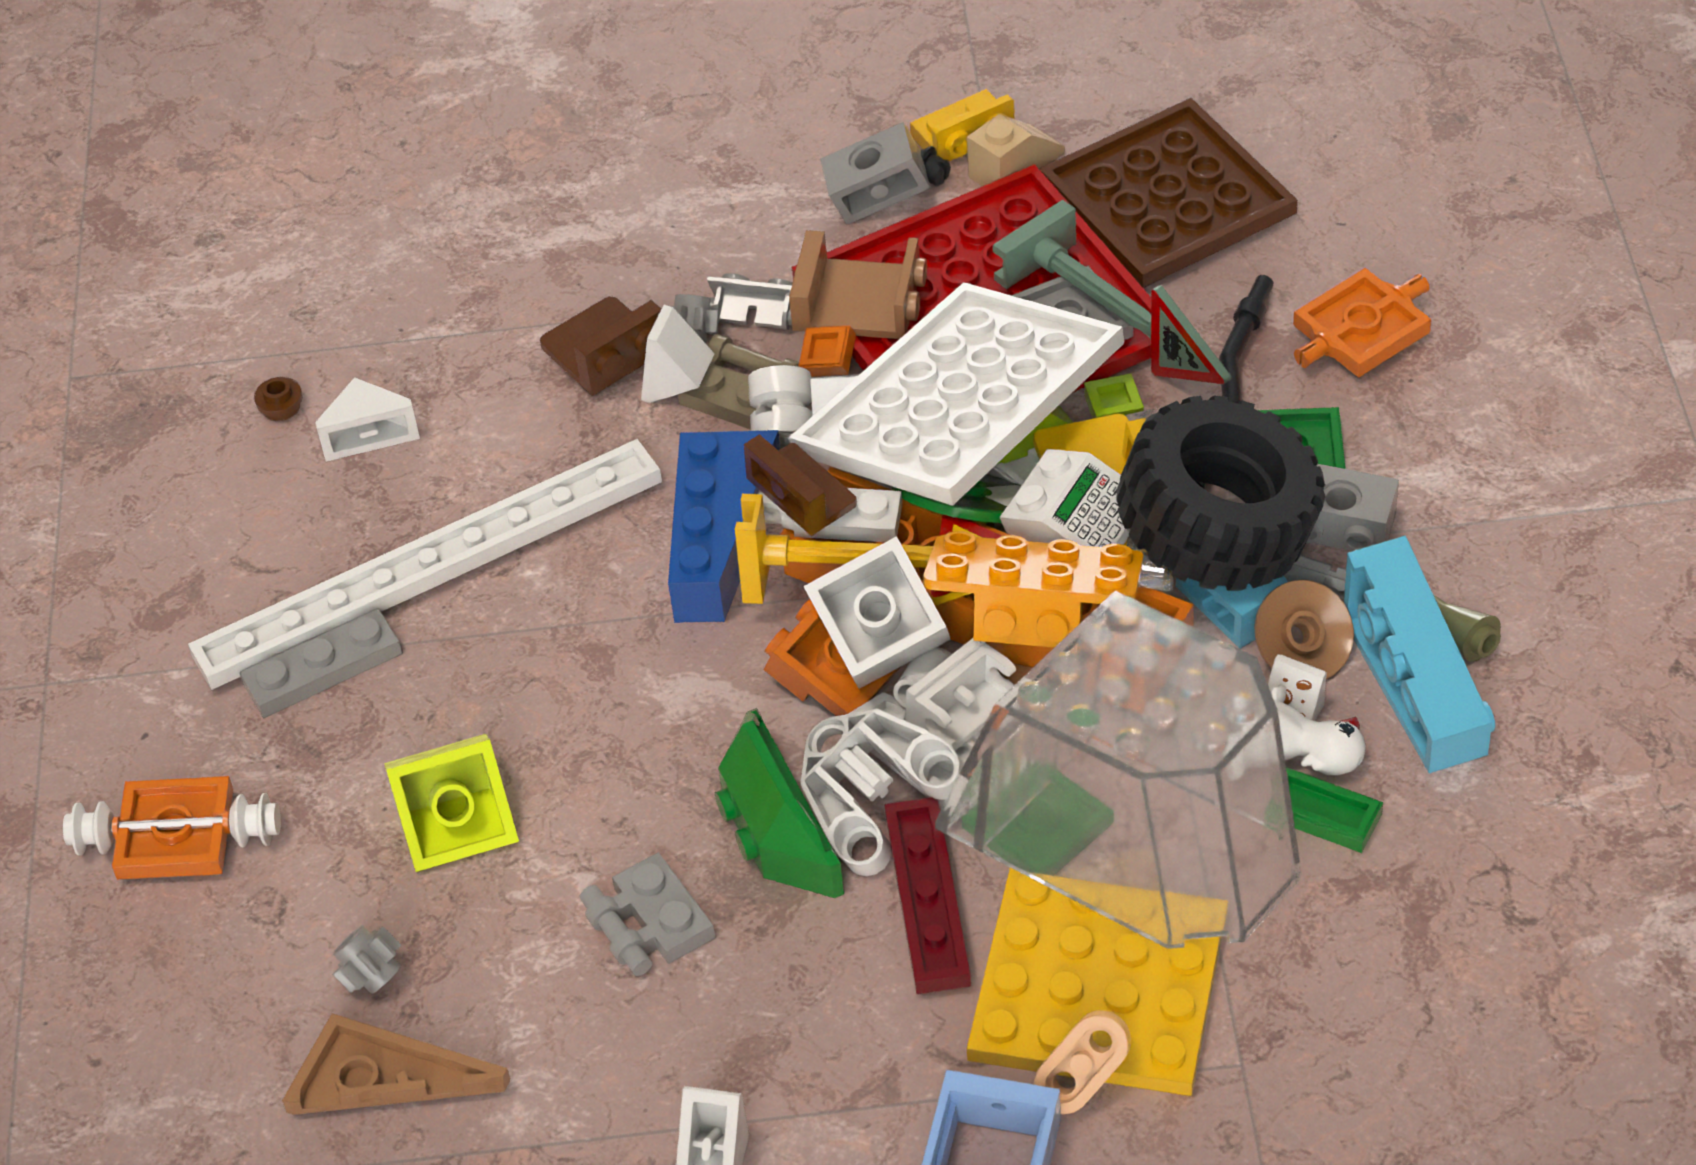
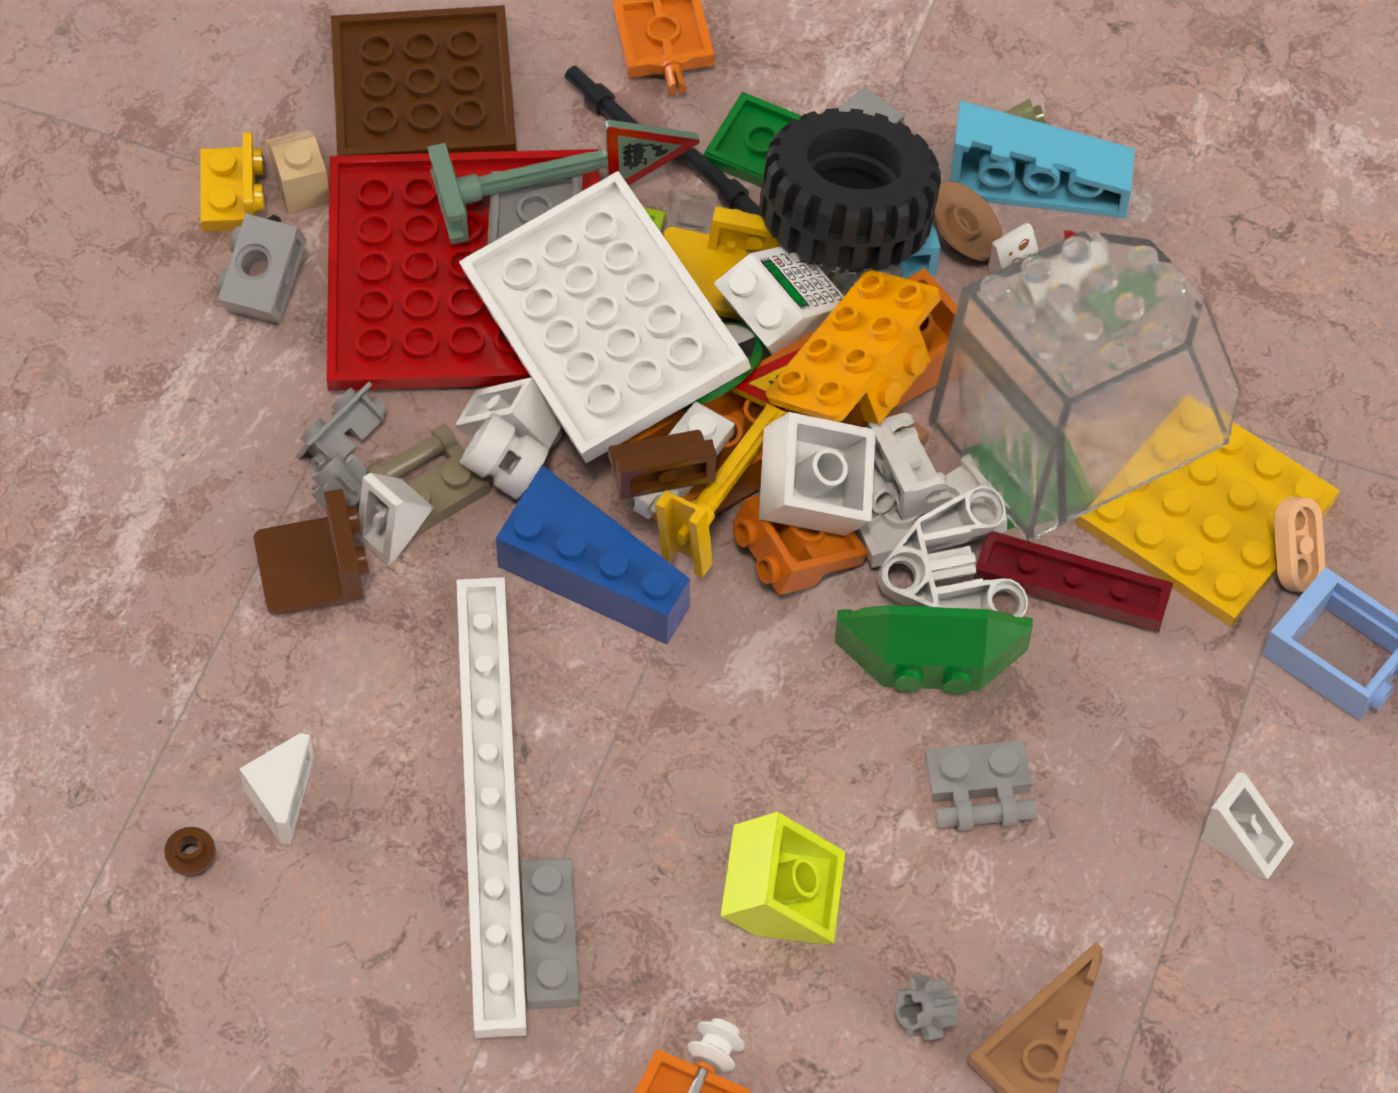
camera: 70 degrees left, 10 degrees up
(827, 350) = (448, 397): orange tile -> none
(866, 295) = (405, 340): medium nougat panel -> none

